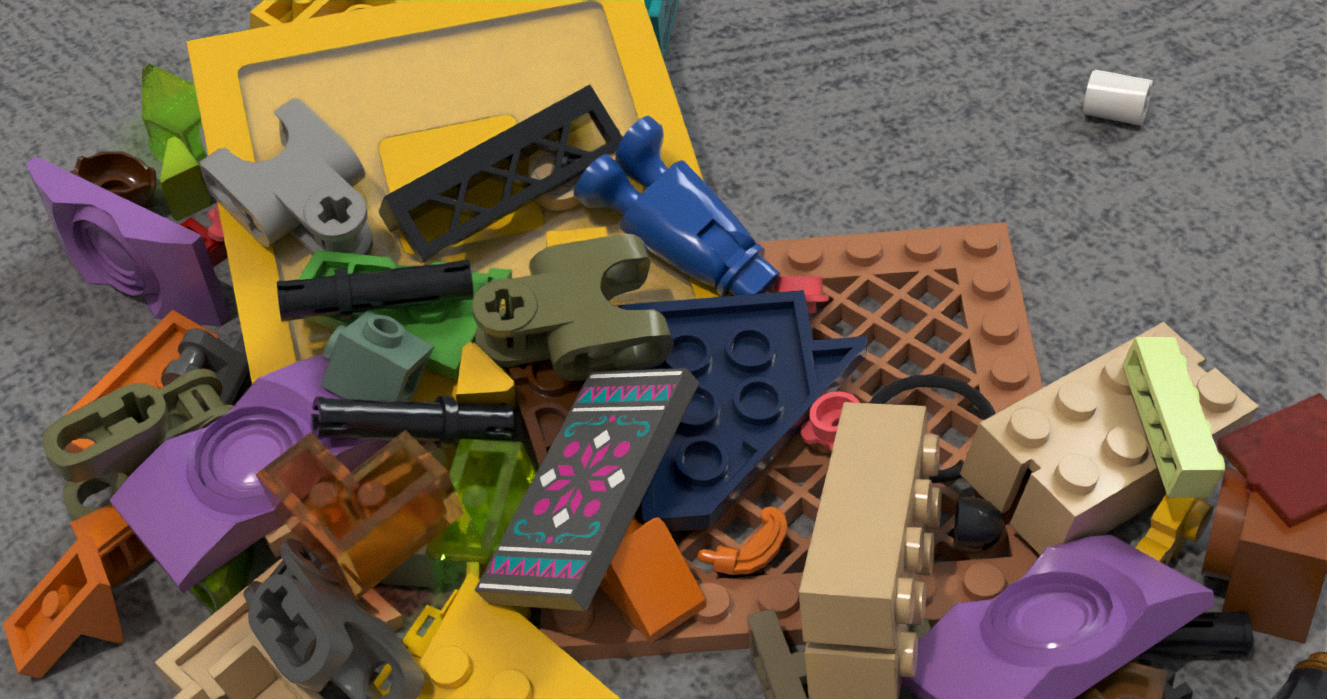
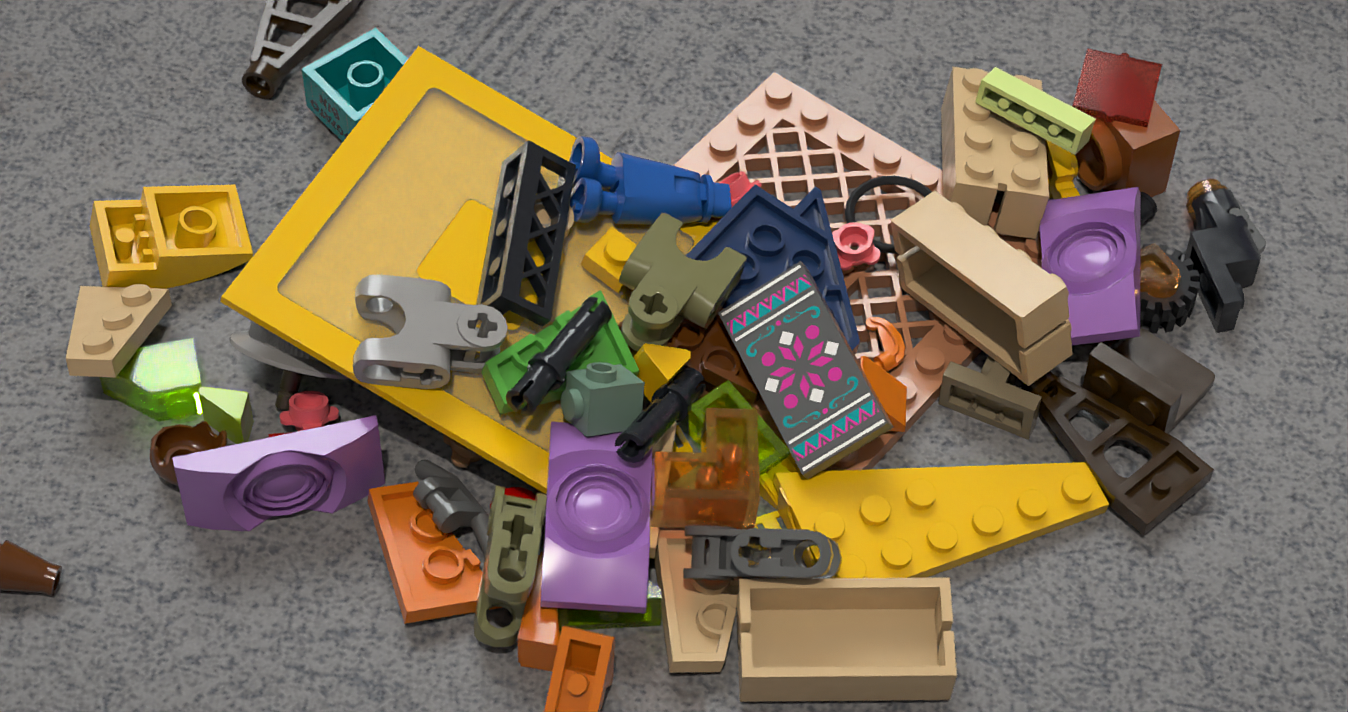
camera: 55 degrees left, 5 degrees up
(160, 53) = (112, 327): none -> tan wing

